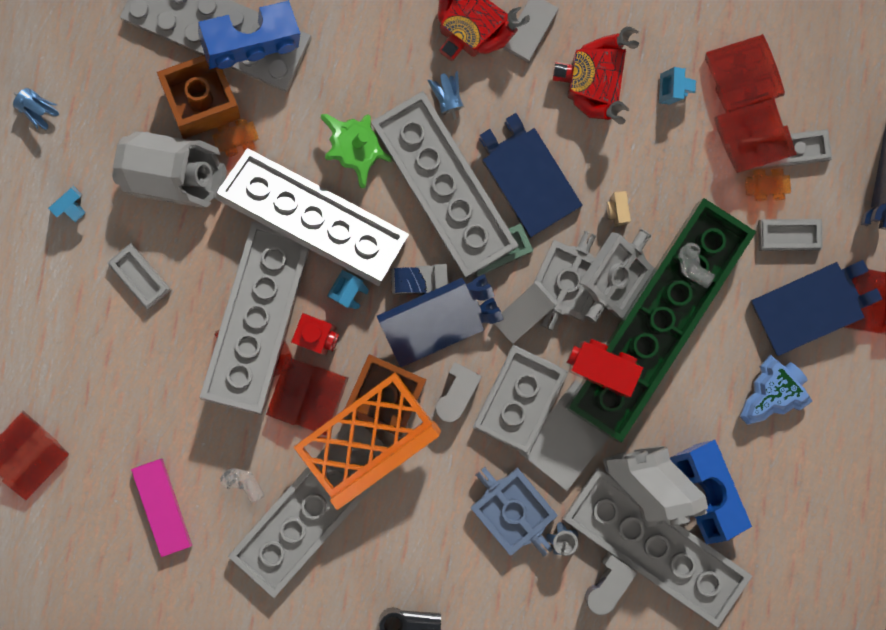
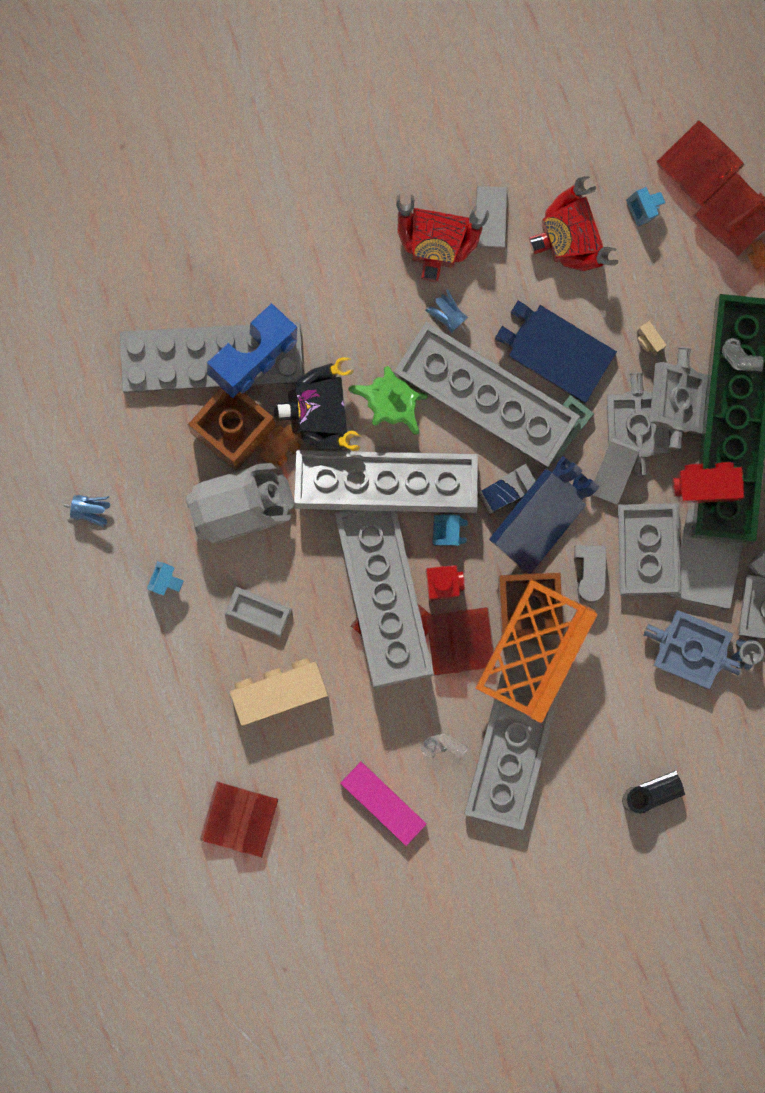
camera: 25 degrees left, 0 degrees up
(117, 358) = (278, 692): none -> tan brick
(285, 119) = (318, 408): none -> black torso

